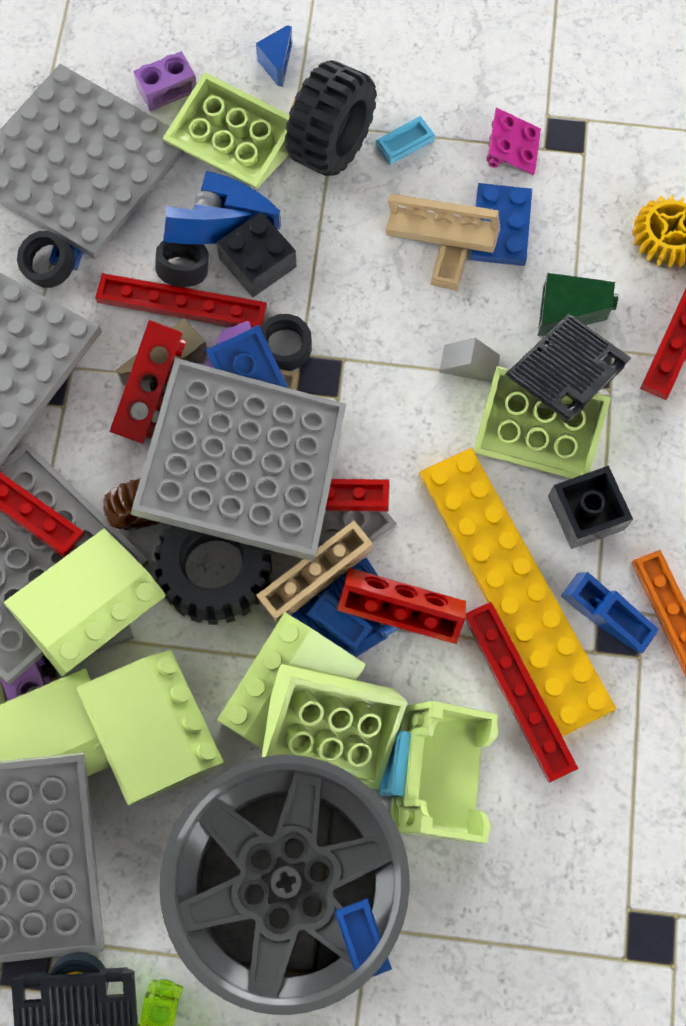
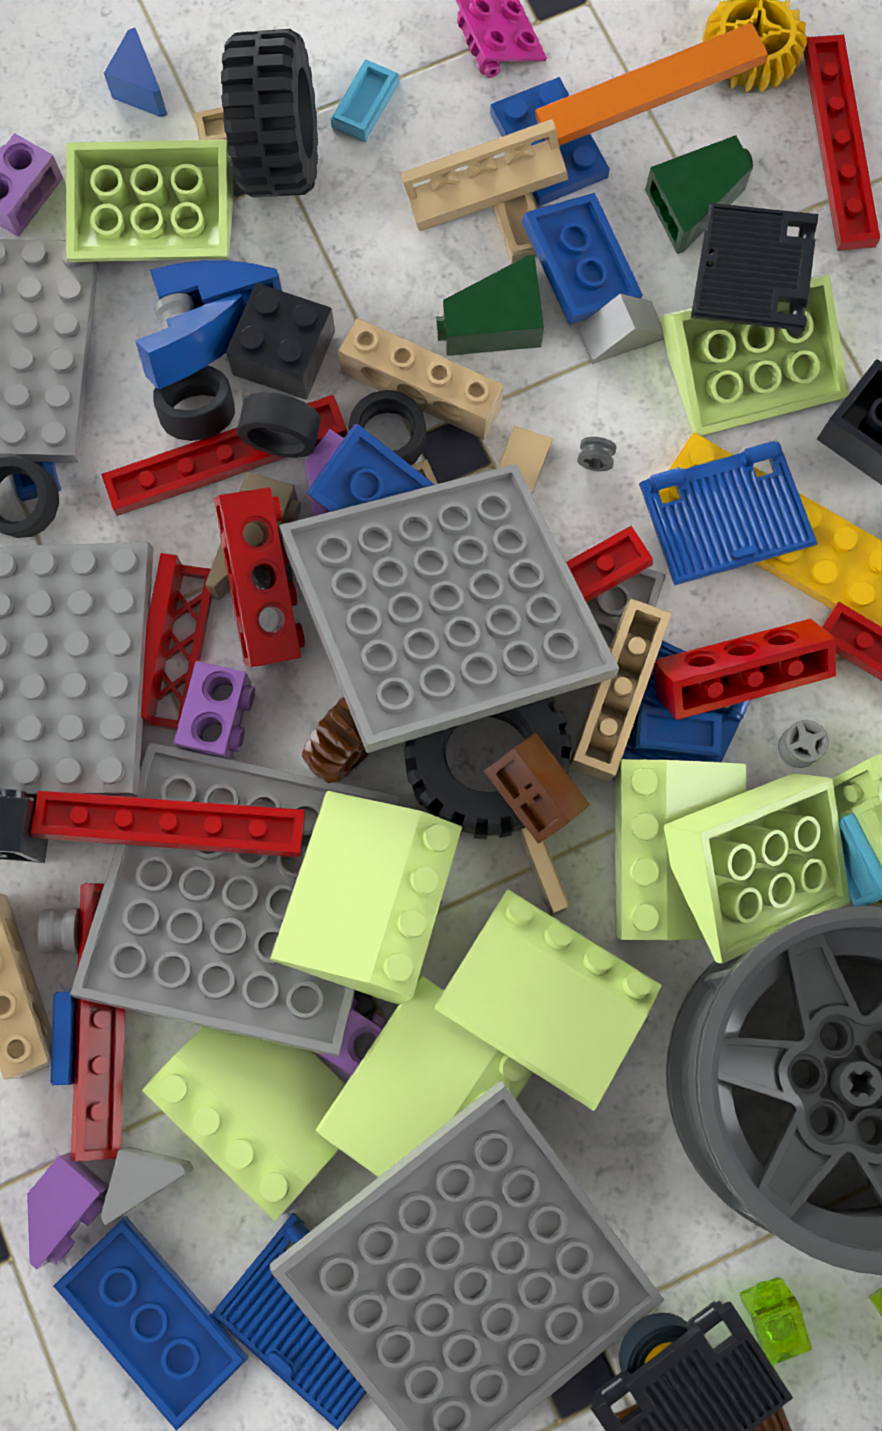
camera: 30 degrees left, 5 degrees up
(68, 441) = (203, 711): none -> medium lavender brick
(75, 382) = (159, 633): none -> red fence
(203, 654) = (544, 873): none -> tan tile
(216, 301) = (279, 425): none -> black tyre
(220, 596) = (537, 788): none -> reddish brown hinge
(325, 322) = (431, 380): none -> tan brick
(359, 405) = (528, 452): none -> tan tile
(396, 307) = (494, 312): none -> dark green slope
(402, 426) = (596, 453): none -> dark grey bush
(412, 668) = (810, 737): none -> light grey wheel
(456, 508) = (727, 514): none -> blue window
(470, 302) = (580, 256): none -> blue plate
(582, 224) = (654, 84): none -> orange tile

